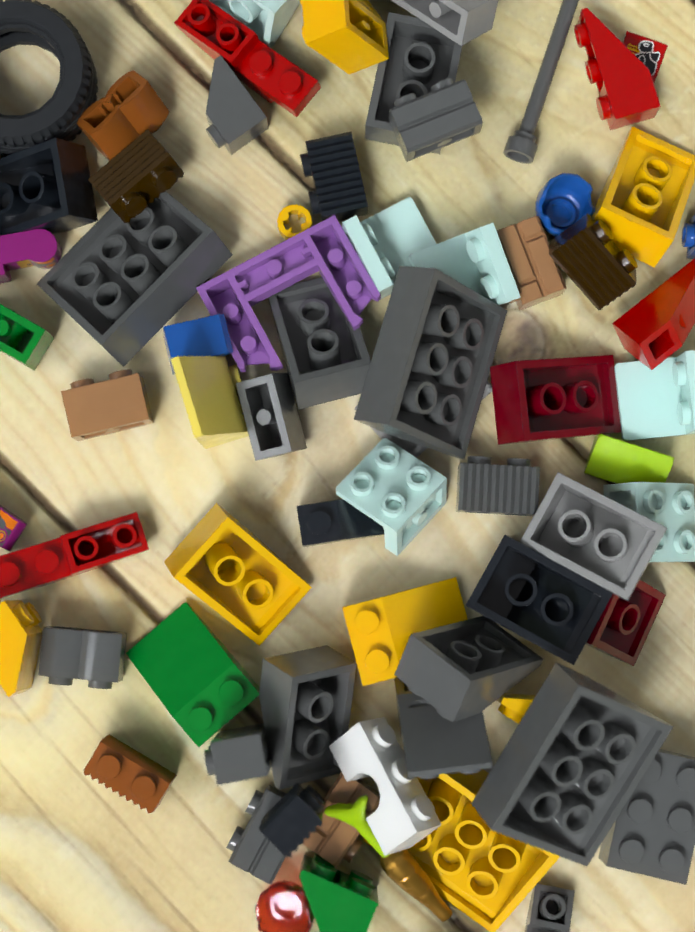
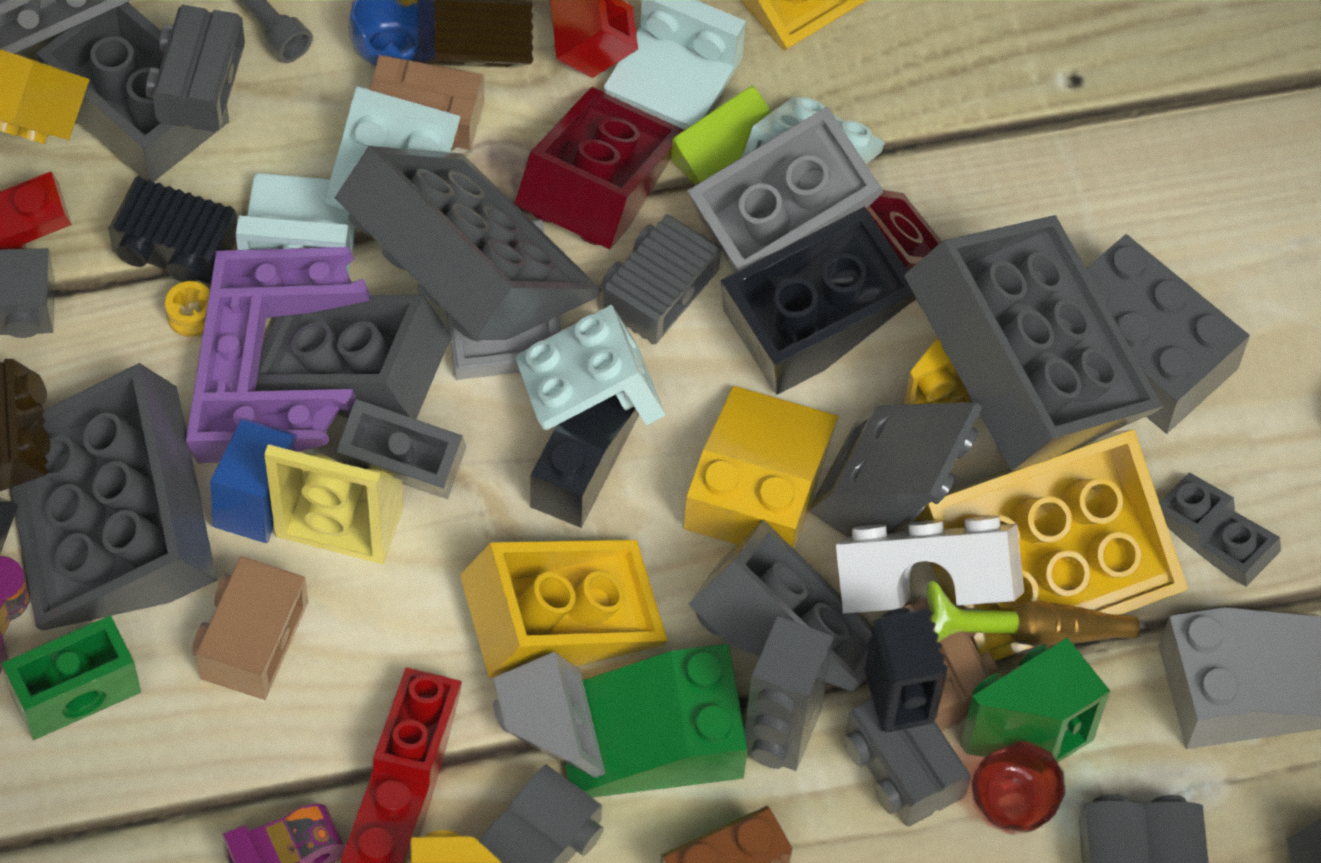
camera: 60 degrees left, 25 degrees down
(155, 617) = (550, 711): none -> light grey slope
(464, 666) = (846, 404): dark grey slope -> none

